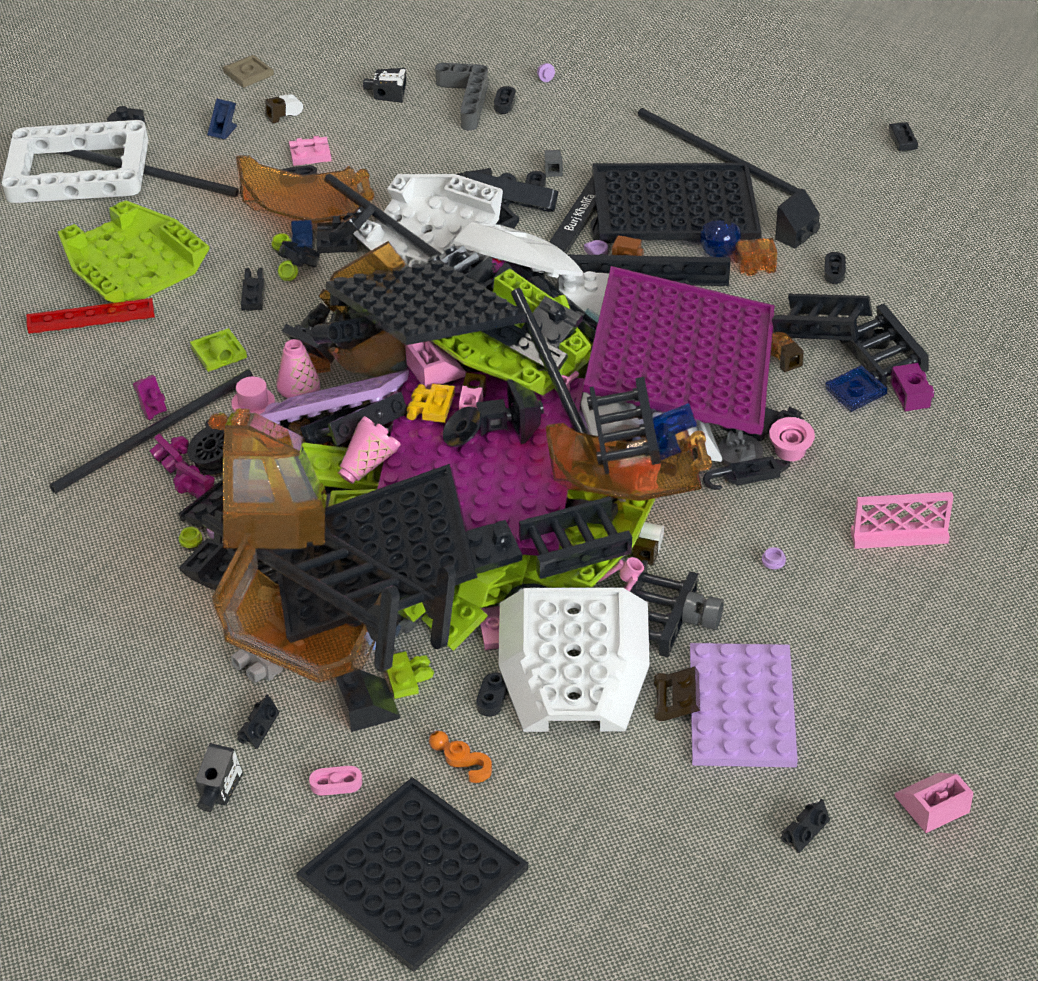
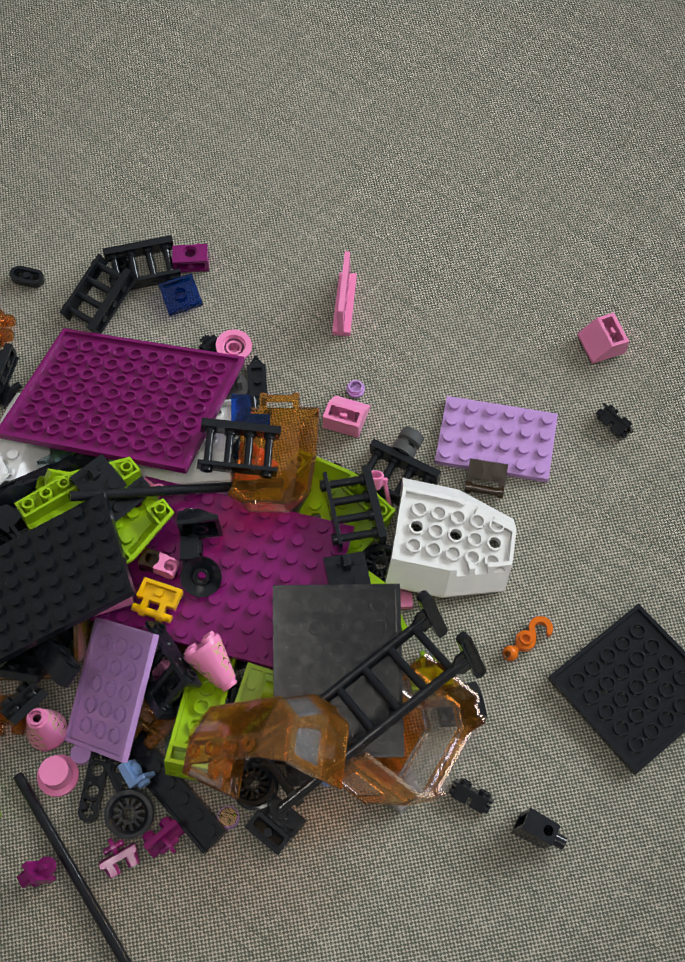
camera: 80 degrees left, 20 degrees up
(190, 537) = (237, 843): lime plate -> none
(336, 780) = (542, 737): bright pink plate -> none
(494, 690) = (462, 611): black plate -> none
(730, 549) = (345, 416): none -> bright pink slope
(786, 351) = (123, 329): dark brown leg -> none

